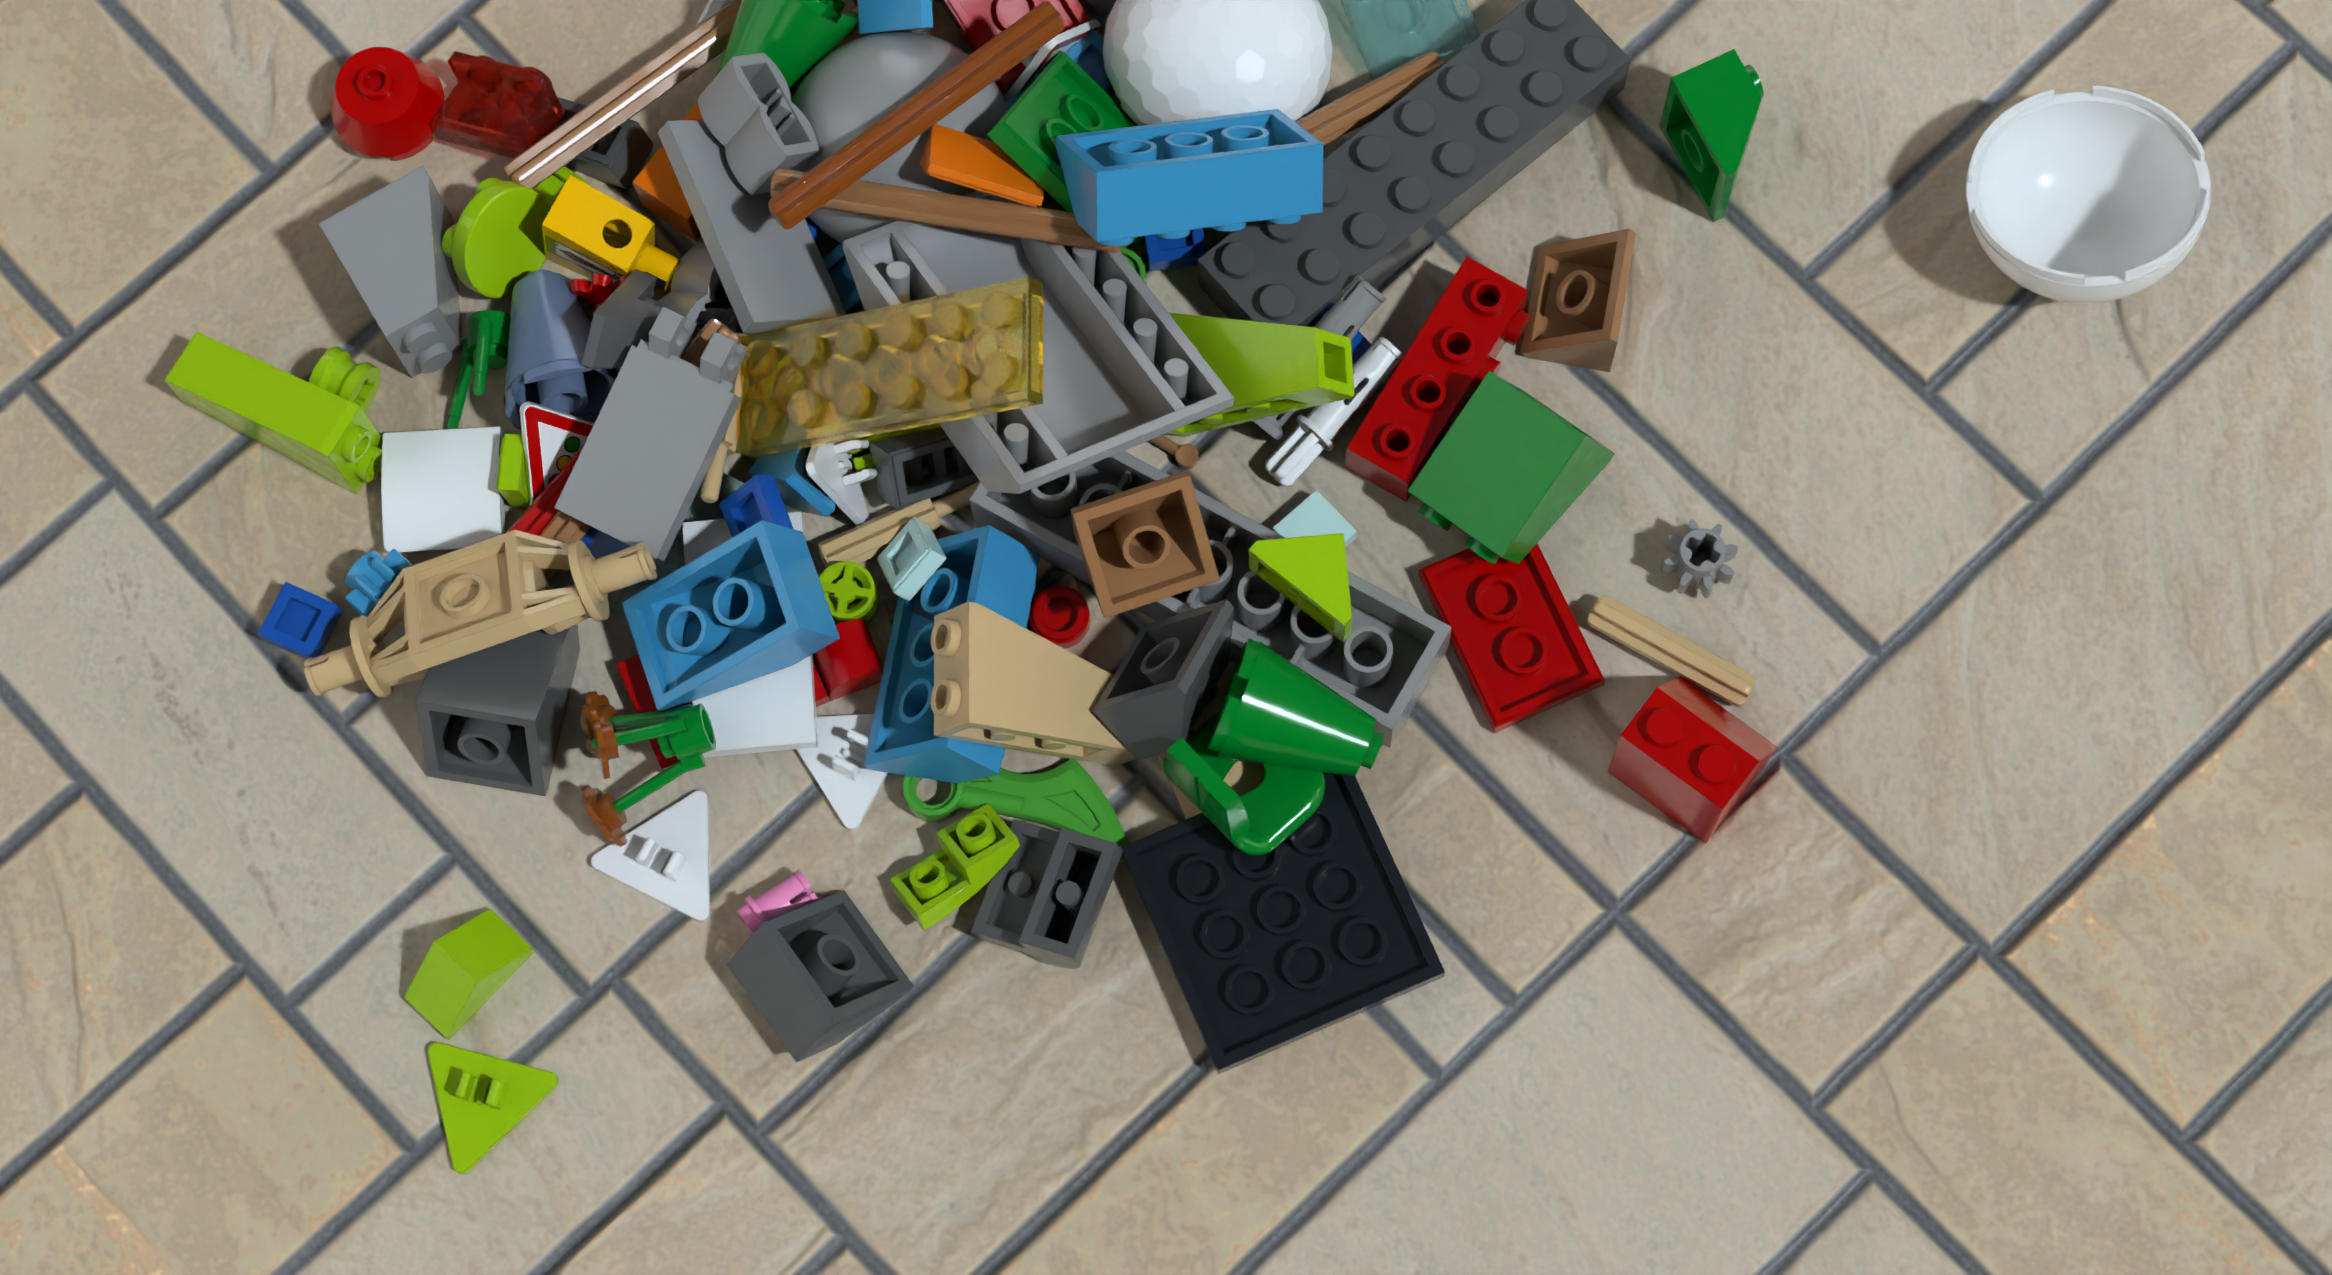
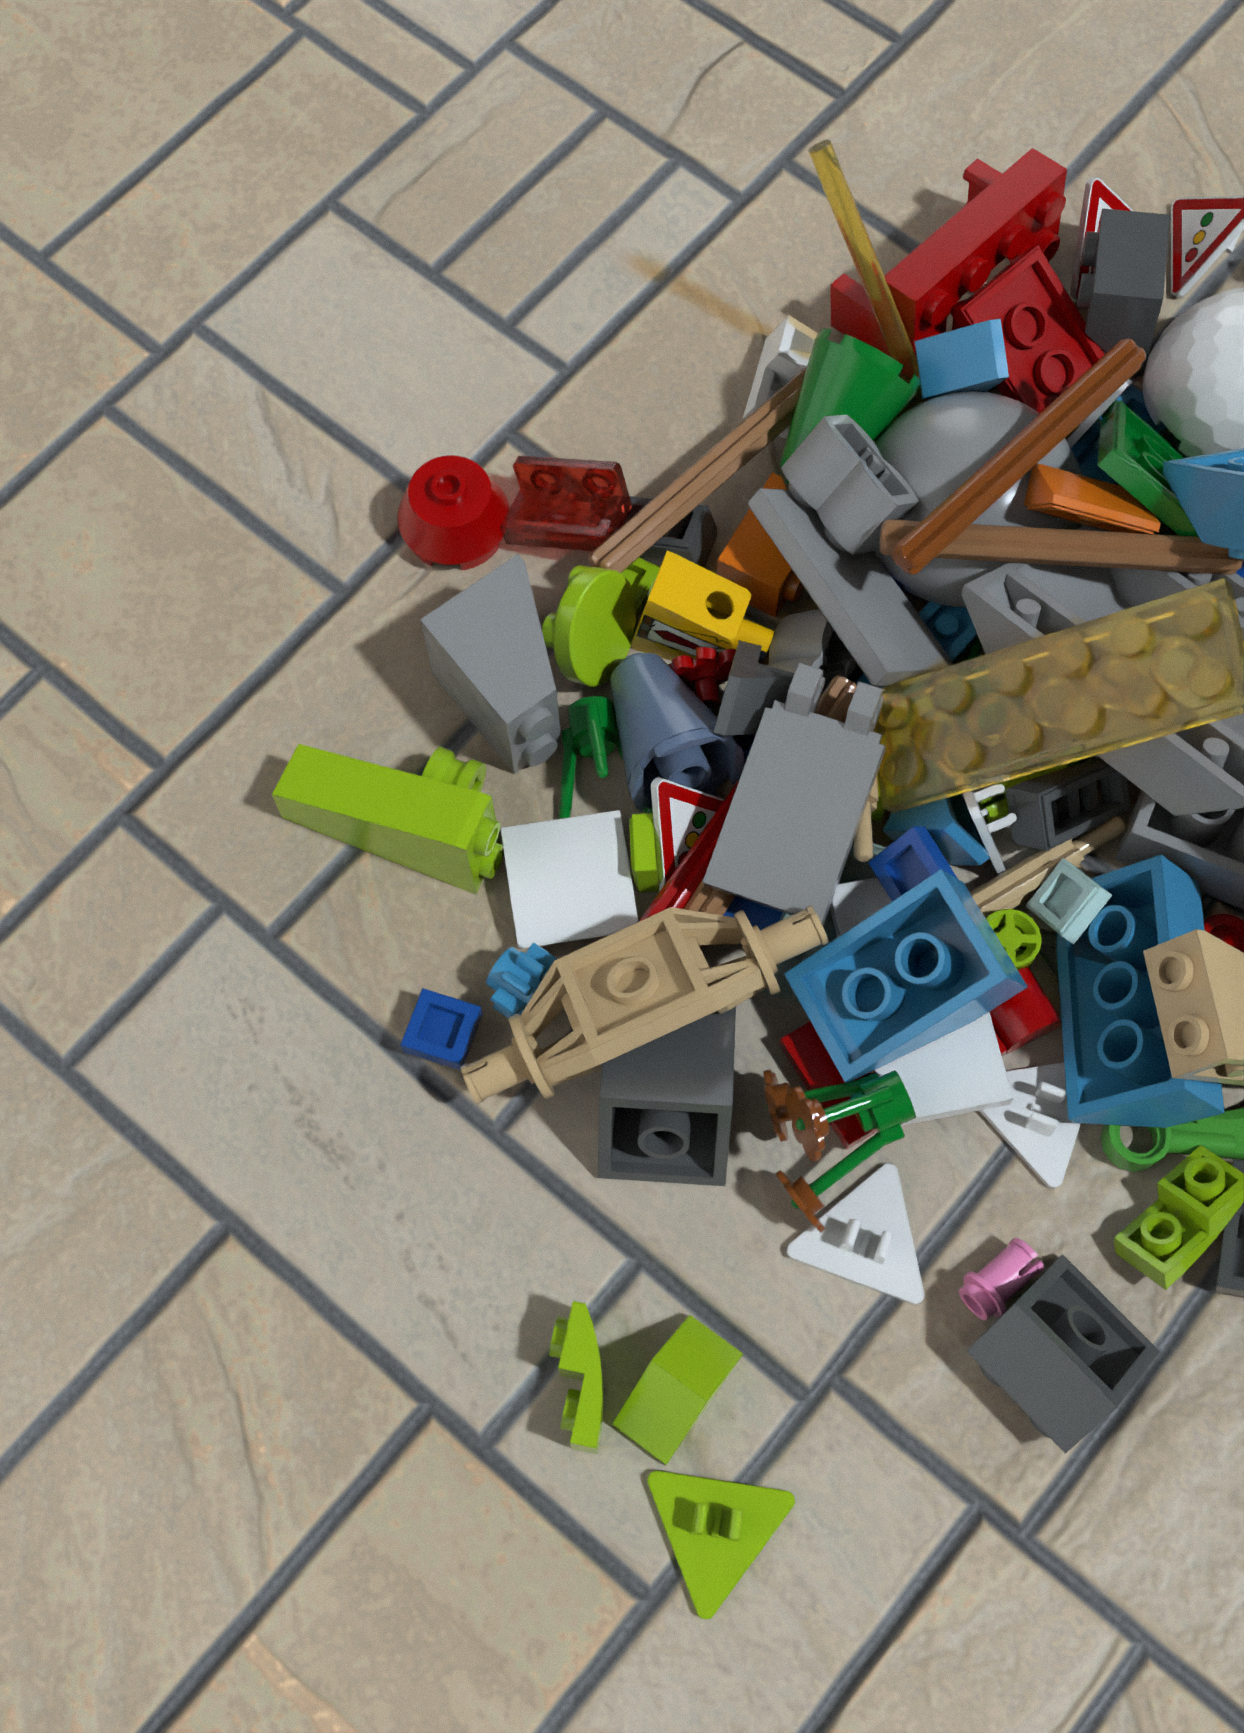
camera: 10 degrees left, 5 degrees down
(380, 931) = (579, 1356): none -> lime slope

